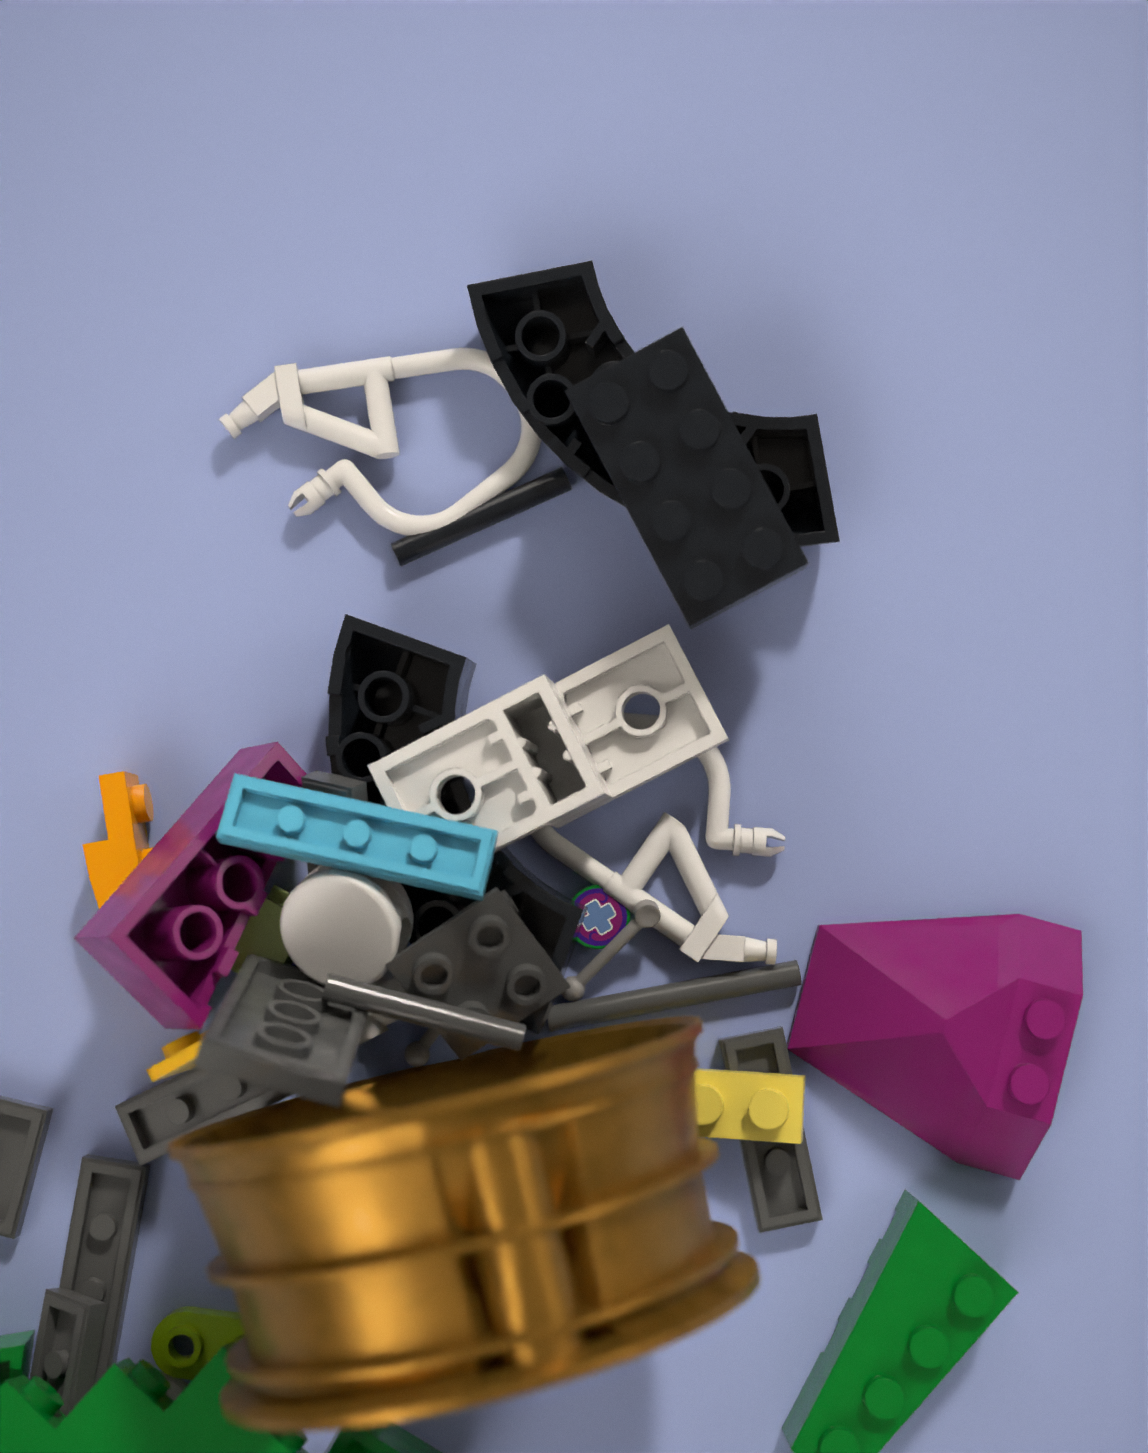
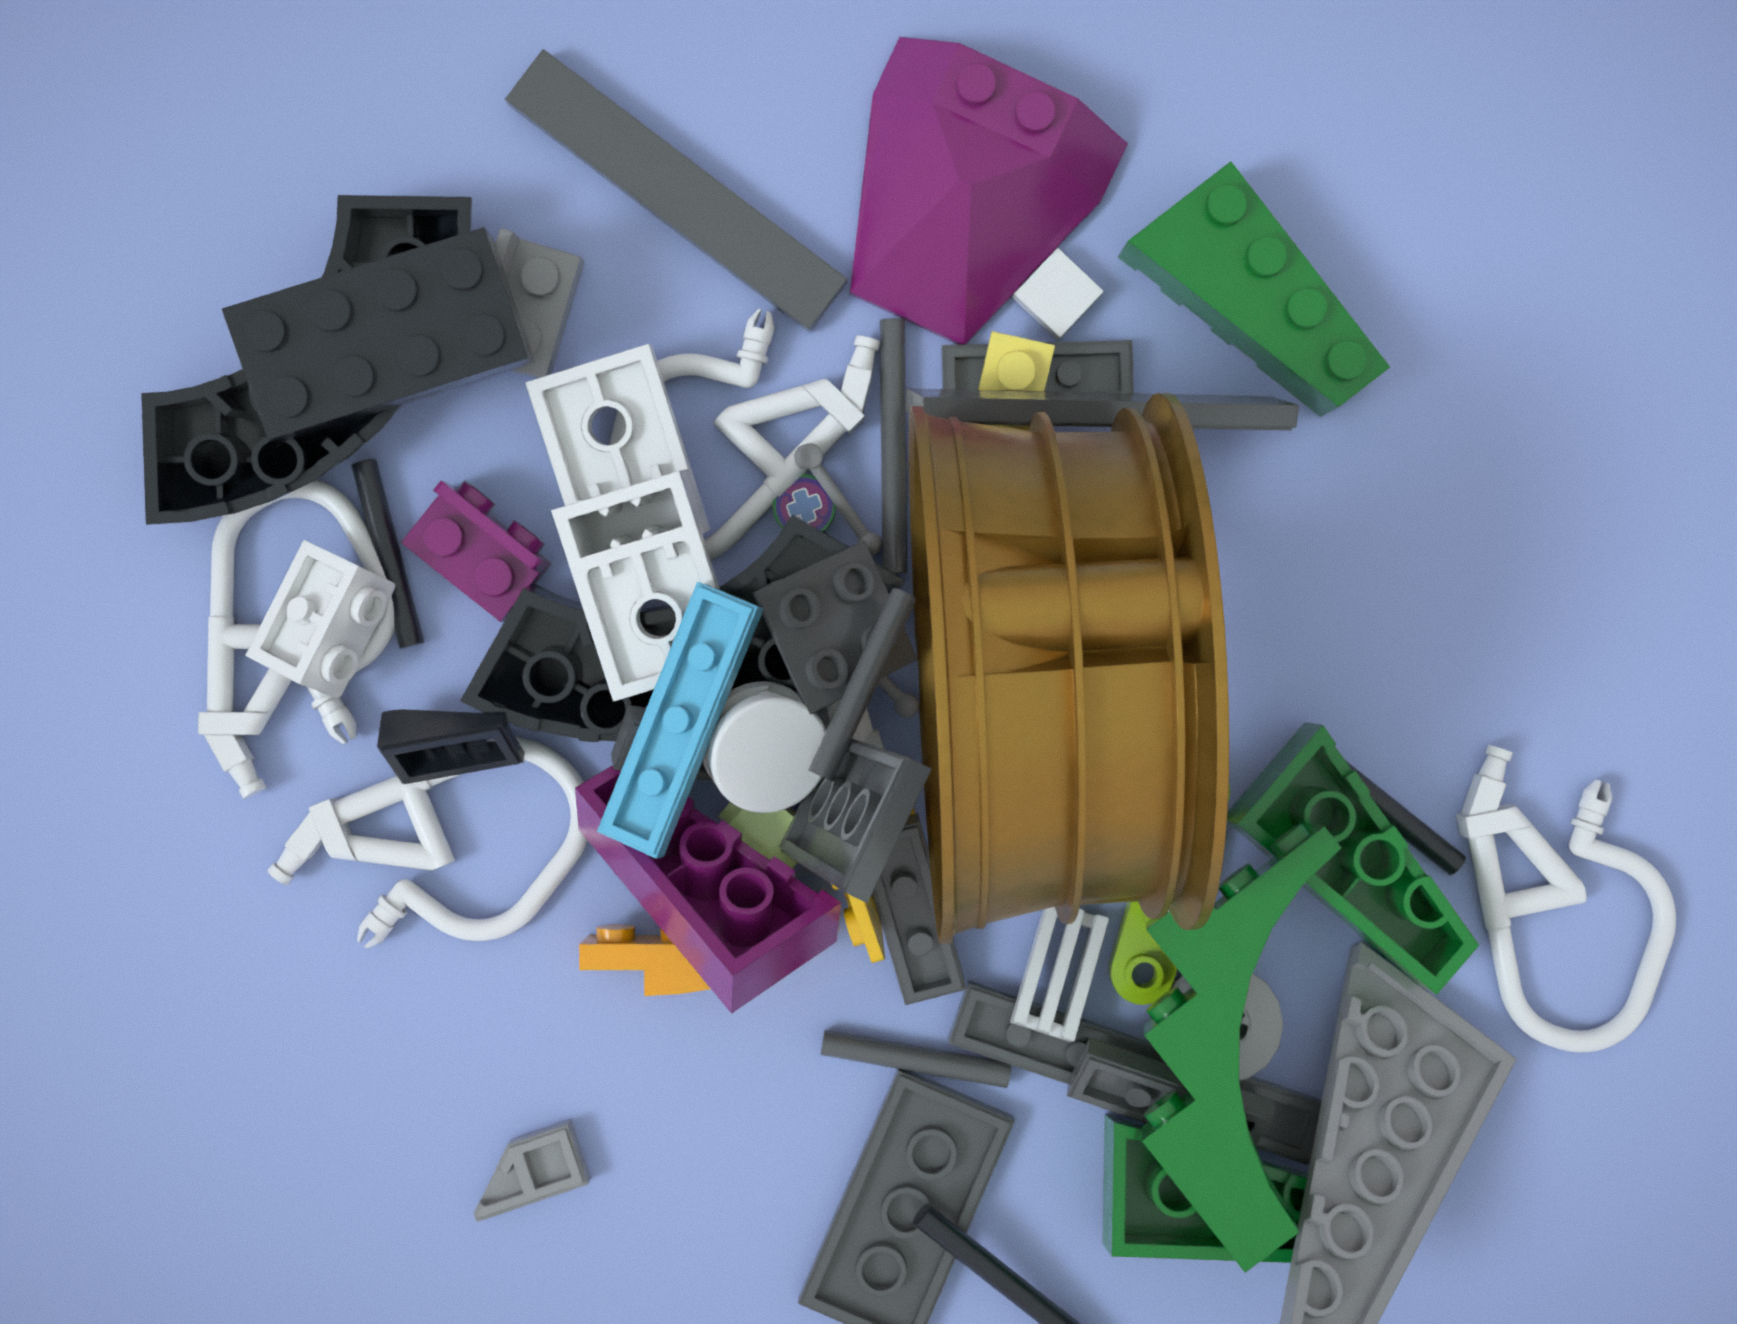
camera: 75 degrees left, 5 degrees up
(62, 1126) = (915, 1058): none -> dark grey bar
(160, 1283) = (1067, 1031): none -> white tile
(206, 505) = (329, 826): none -> white piece
(302, 605) = (445, 743): none -> black slope
(403, 465) = (321, 620): none -> white bracket
(498, 602) = (475, 549): none -> magenta bracket
(744, 1200) = (1099, 409): none -> dark grey tile
(765, 623) = (543, 291): none -> light grey bracket
(855, 1135) = (1057, 294): none -> white tile
(886, 738) = (676, 190): none -> dark grey tile

